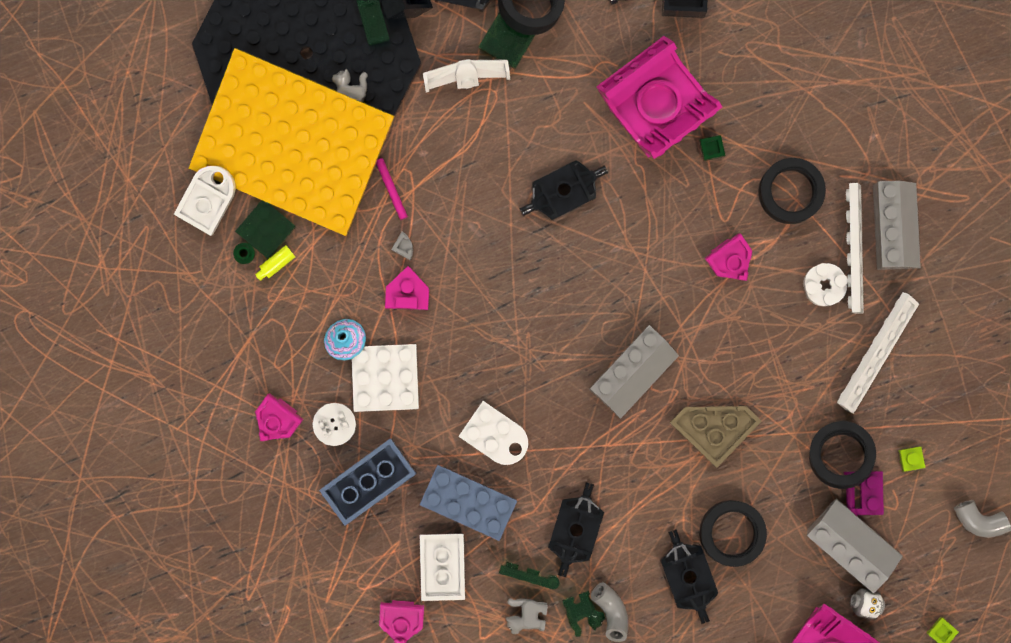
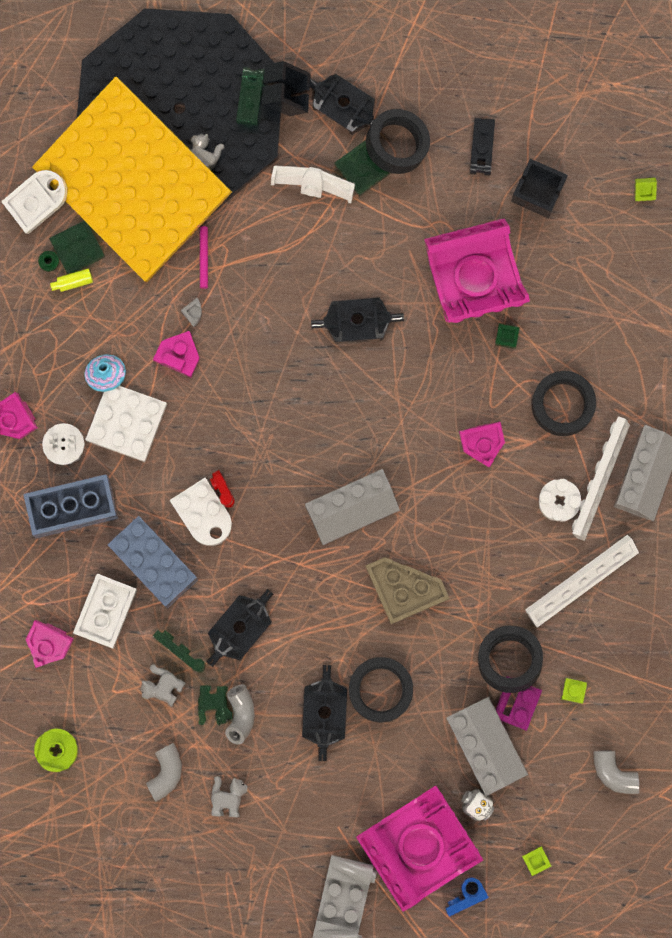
camera: 30 degrees right, 5 degrees down
(498, 400) = (219, 482): none -> red plate

